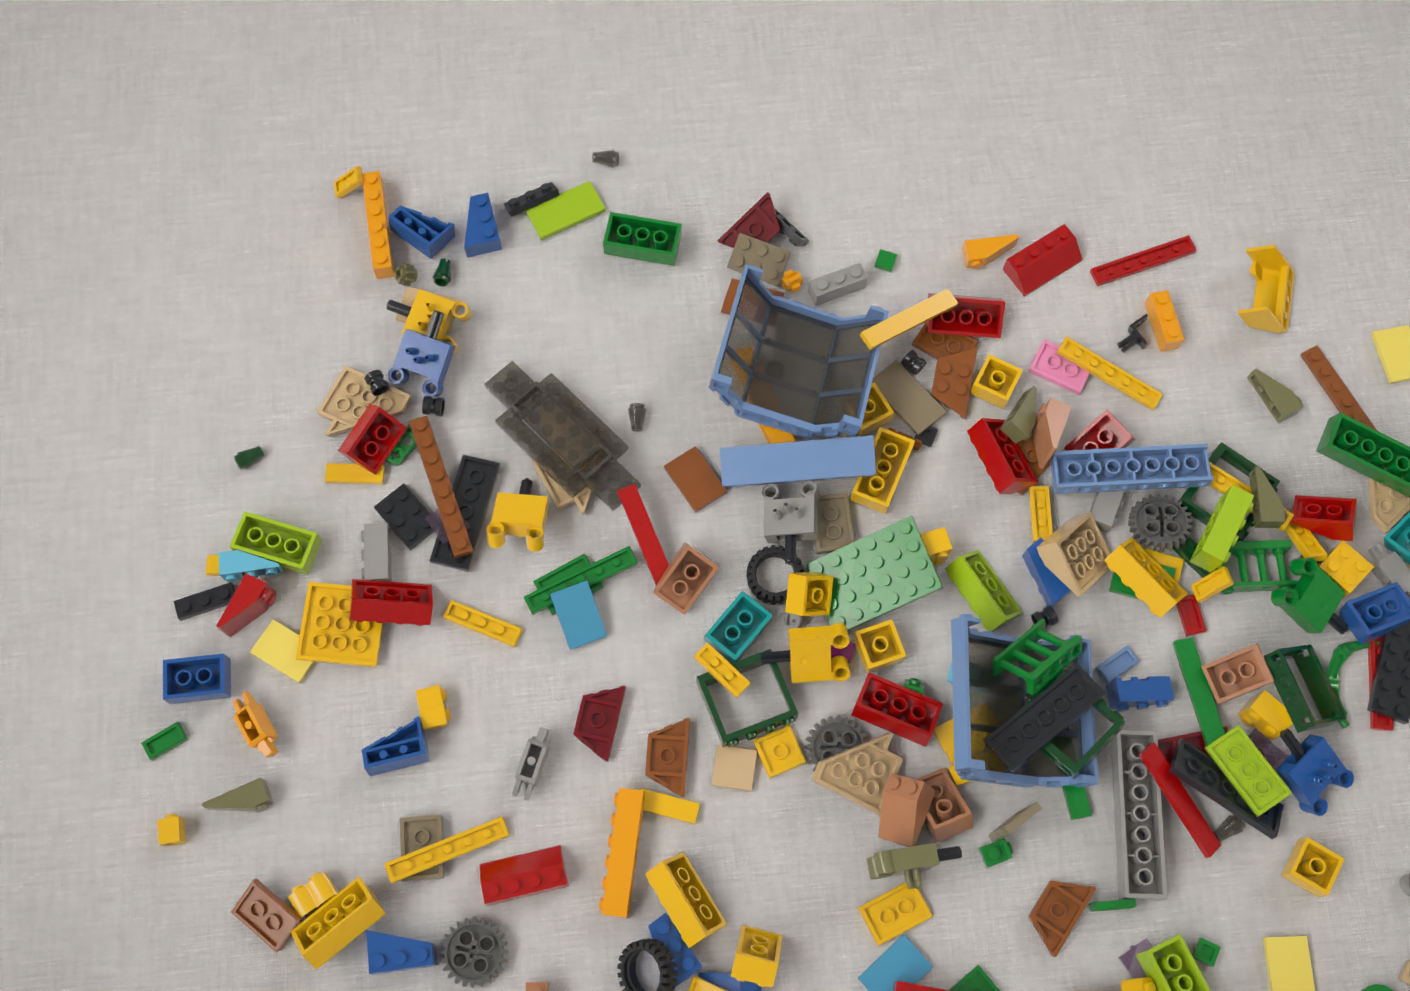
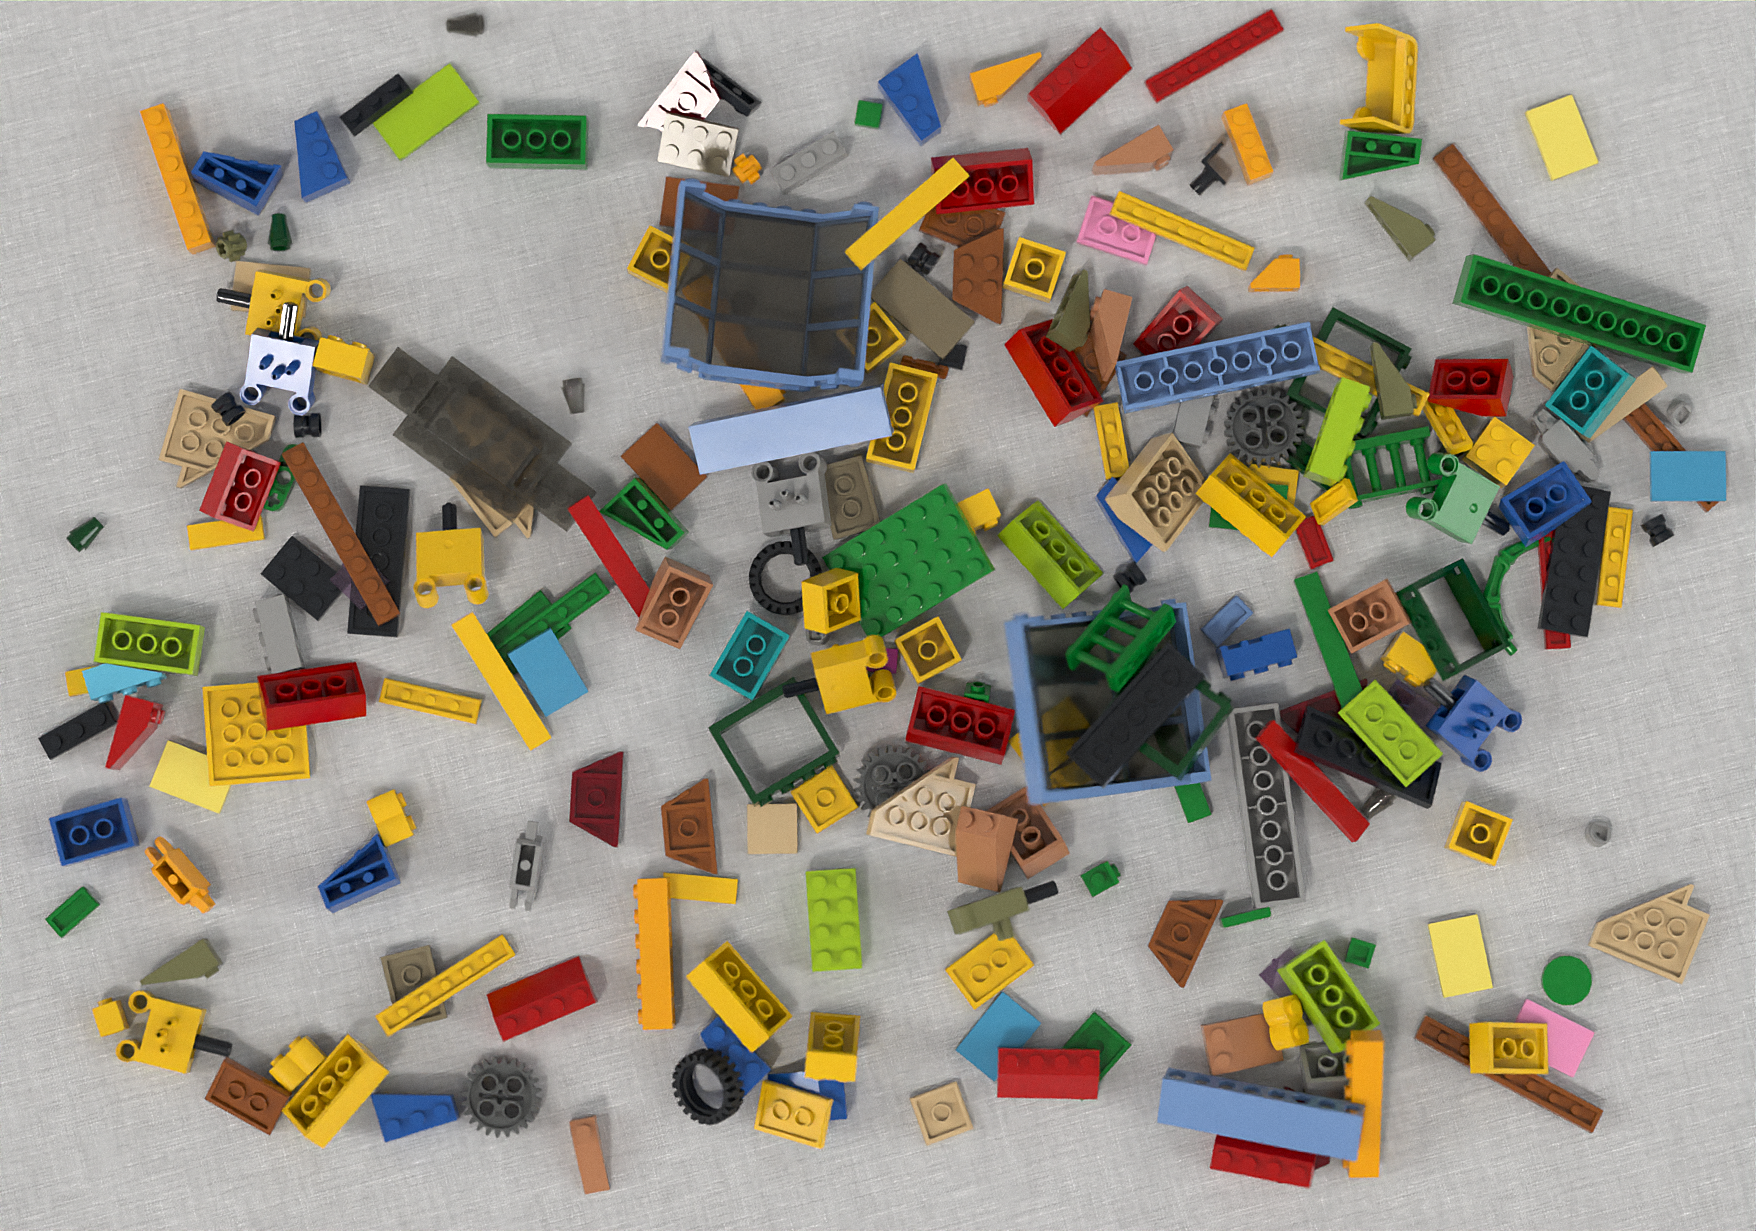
camera: 10 degrees left, 15 degrees up
(215, 853) = (170, 1035): none -> yellow piece
(348, 182) = (123, 123): yellow plate -> none
(470, 362) = (344, 360): none -> yellow brick
(541, 614) = (501, 680): none -> yellow tile
(674, 508) = (645, 514): none -> green wedge
(711, 329) = (653, 259): none -> yellow brick
(722, 670) = (737, 715): yellow tile -> none
(773, 849) = (833, 920): none -> lime brick
(919, 253) = (911, 99): none -> blue wedge
(1014, 821) = (1114, 843): dark tan tile -> none
(1082, 314) = (1138, 155): none -> nougat slope
(1180, 416) = (1278, 276): none -> light orange slope
(1261, 340) = (1376, 153): none -> green wedge

